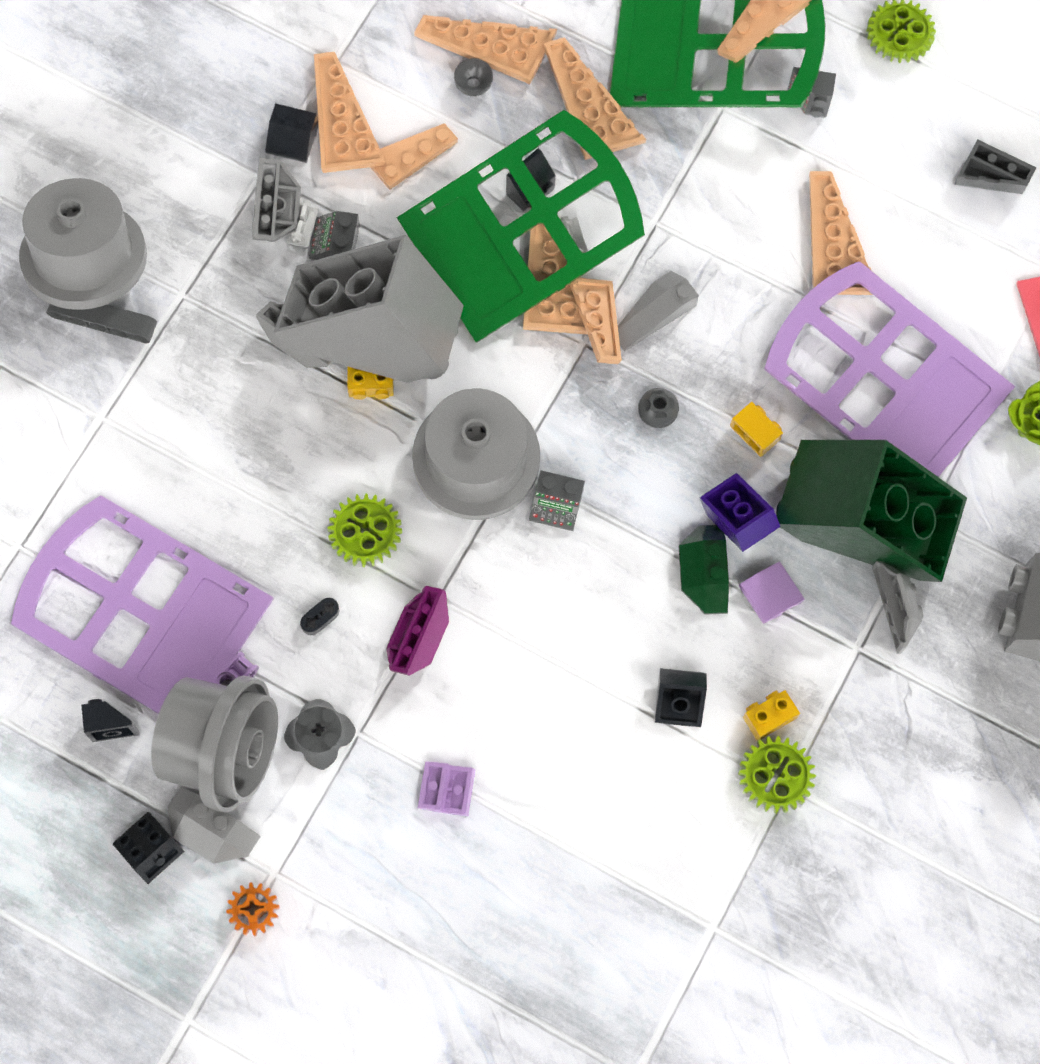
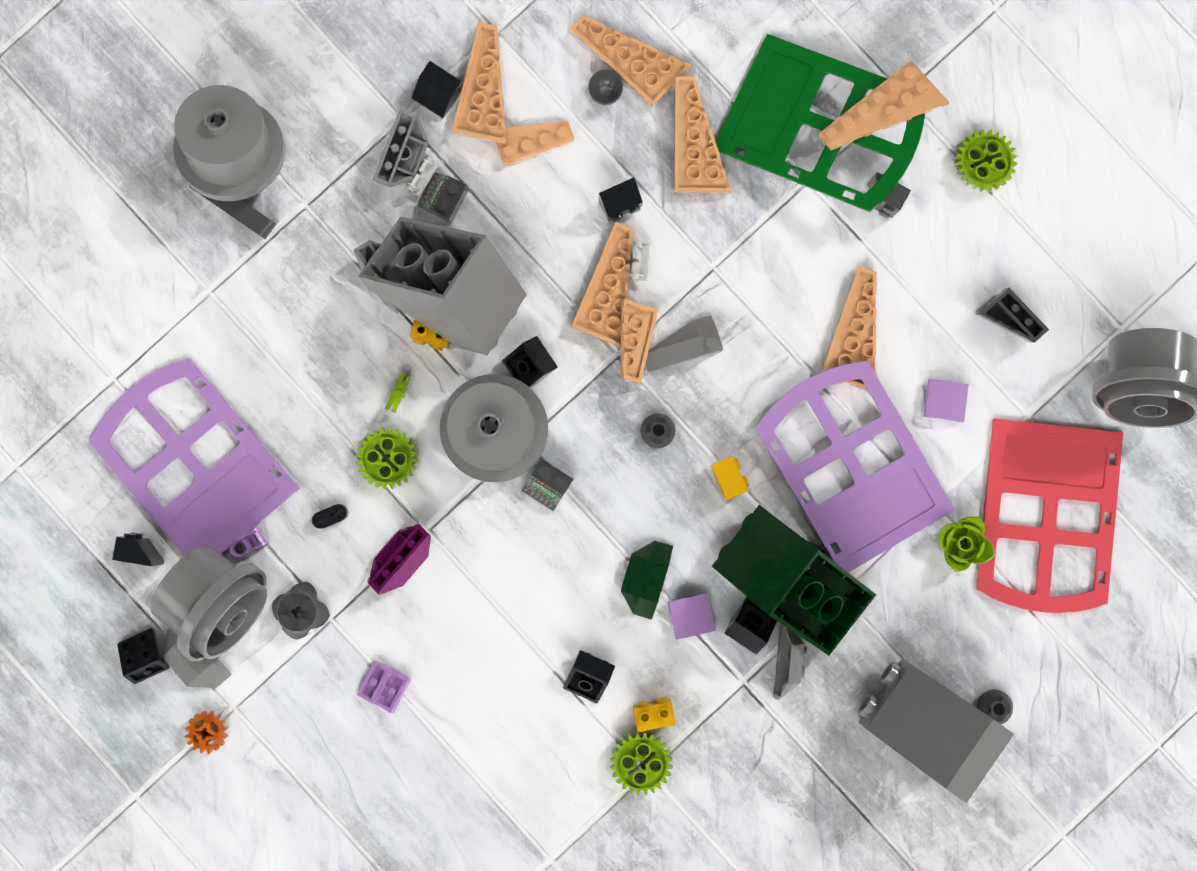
camera: 20 degrees right, 15 degrees up
(353, 457) = (397, 393): none -> lime pin
(478, 253) = (552, 254): green door -> none
(493, 373) = (530, 362): none -> black slope
(739, 512) = (687, 547): dark purple brick -> none
(842, 581) = (750, 626): none -> black slope
(958, 278) = (946, 400): none -> lavender slope

